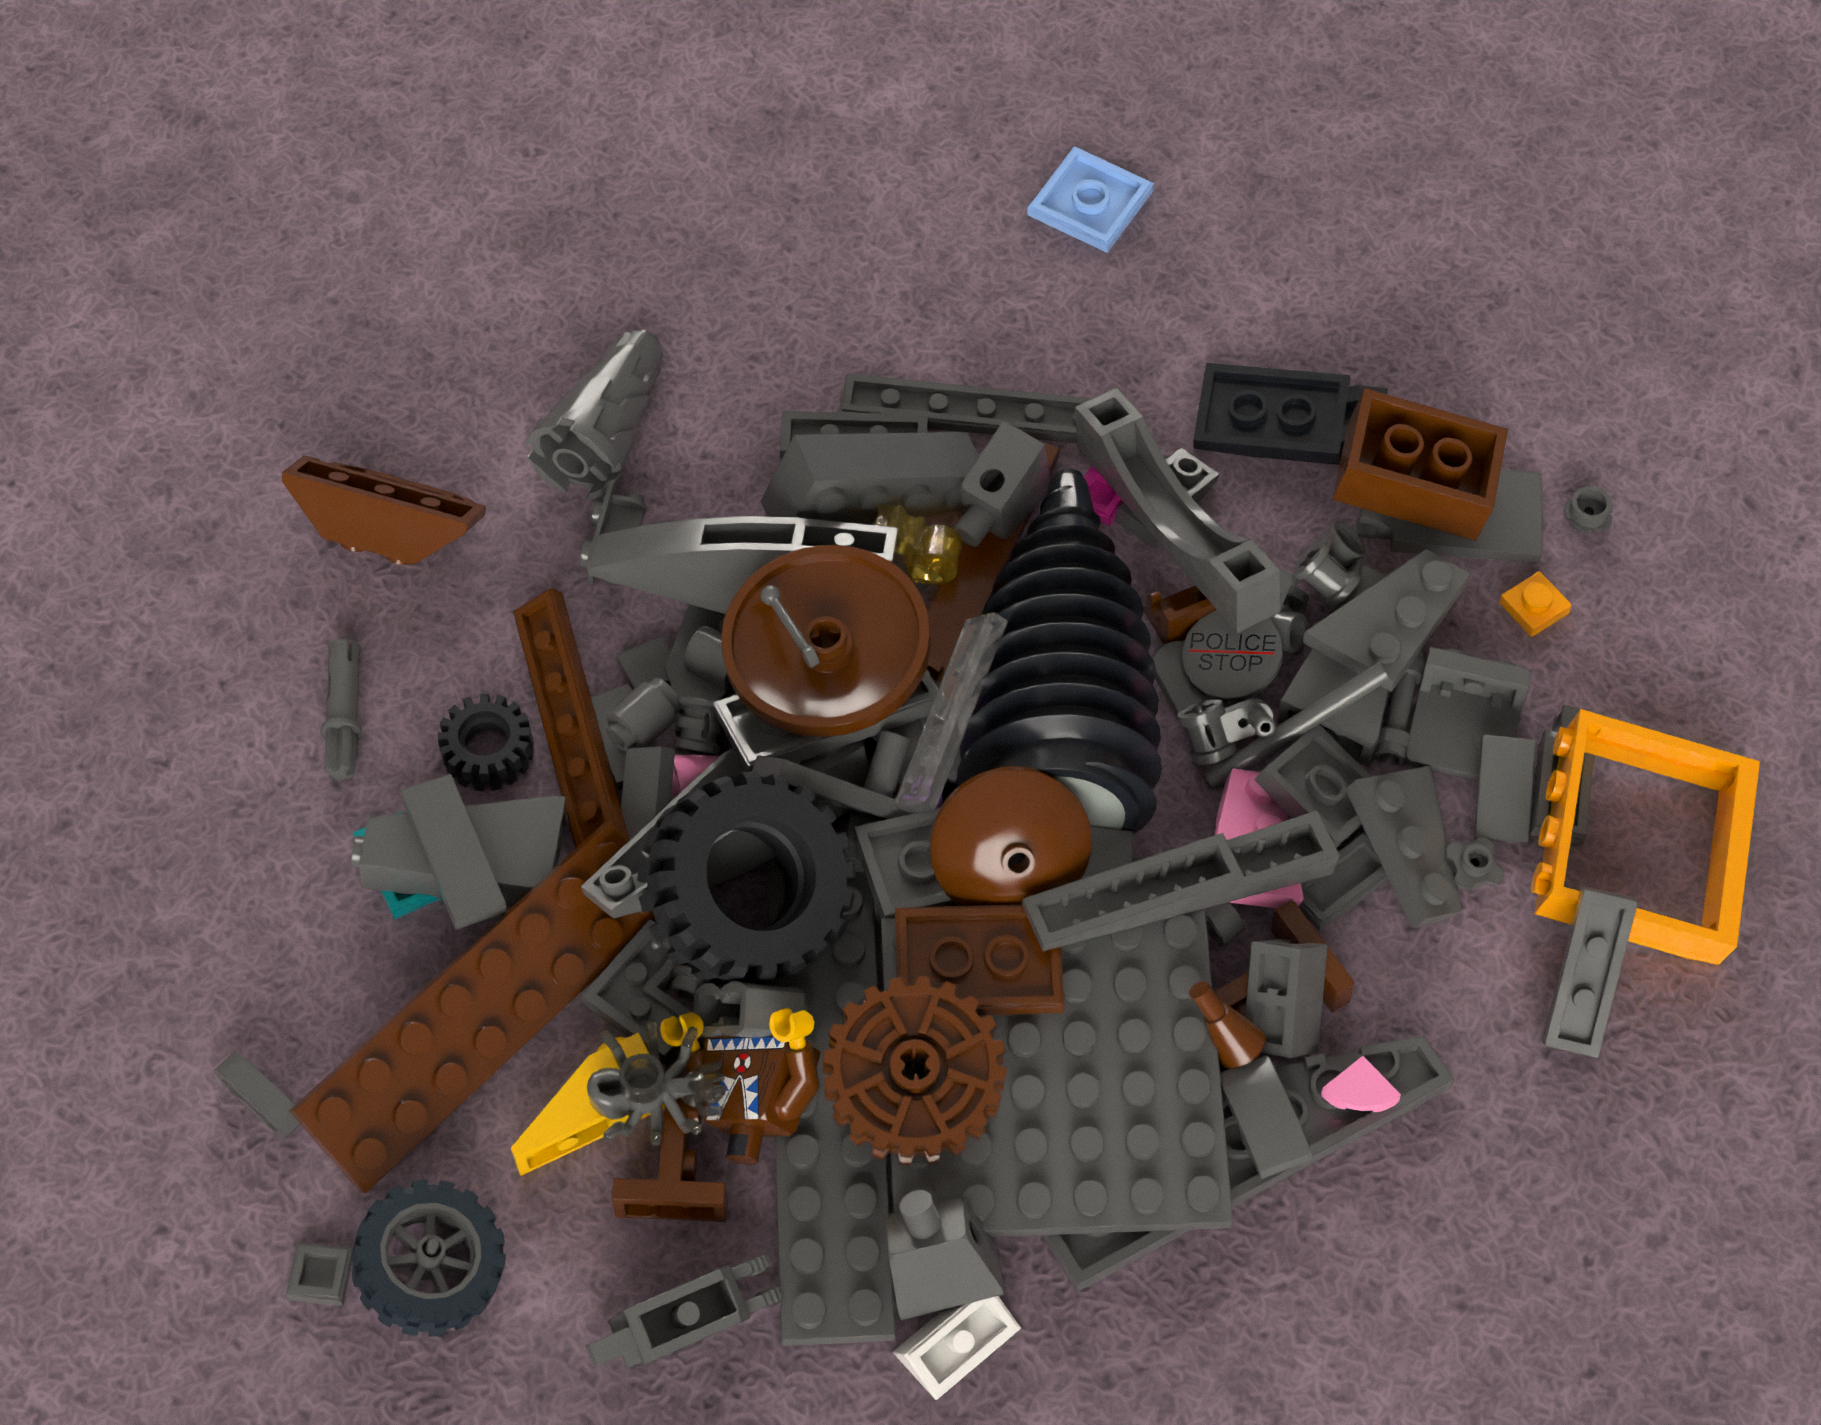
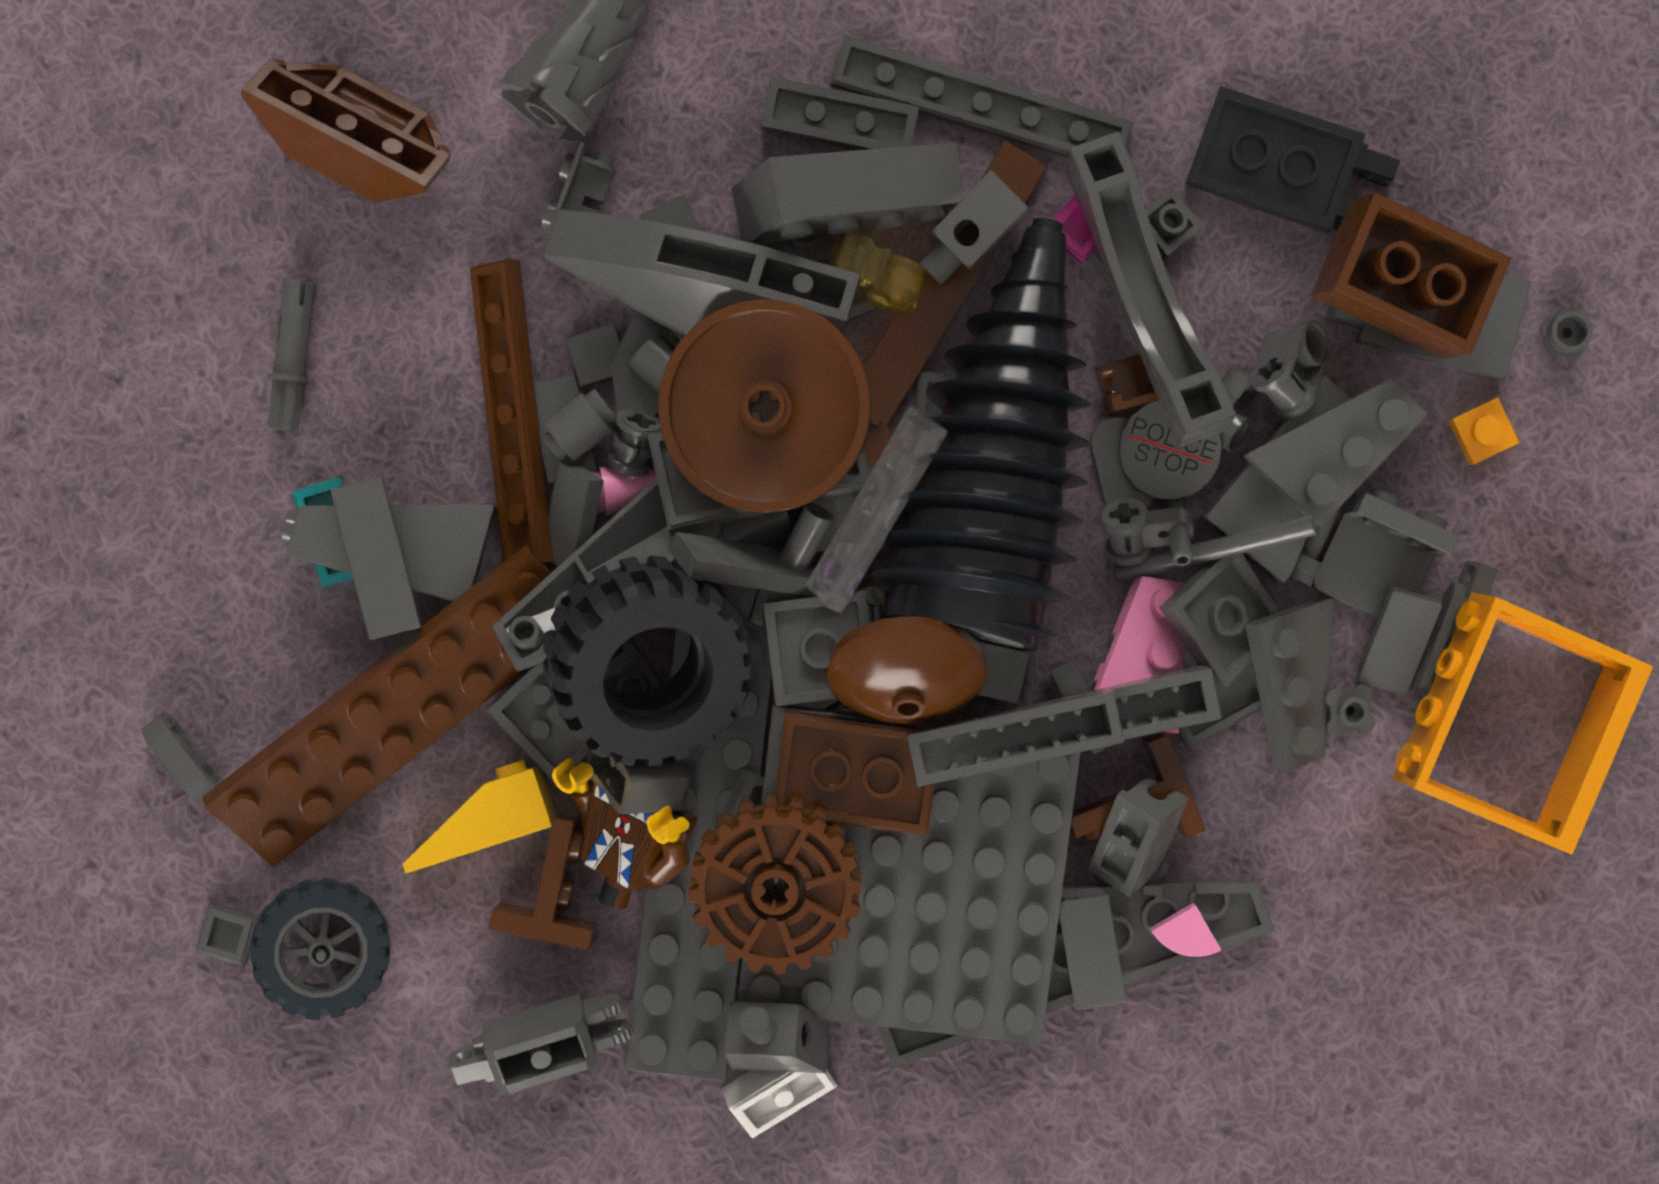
camera: 10 degrees right, 30 degrees up
(476, 718) = (398, 407): black tyre -> none
(644, 1087) = (529, 839): animal -> none
(771, 596) = (715, 351): dark grey hinge -> none
(1230, 1032) = (1082, 873): reddish brown cone -> none
(1590, 971) = (1428, 858): dark grey plate -> none

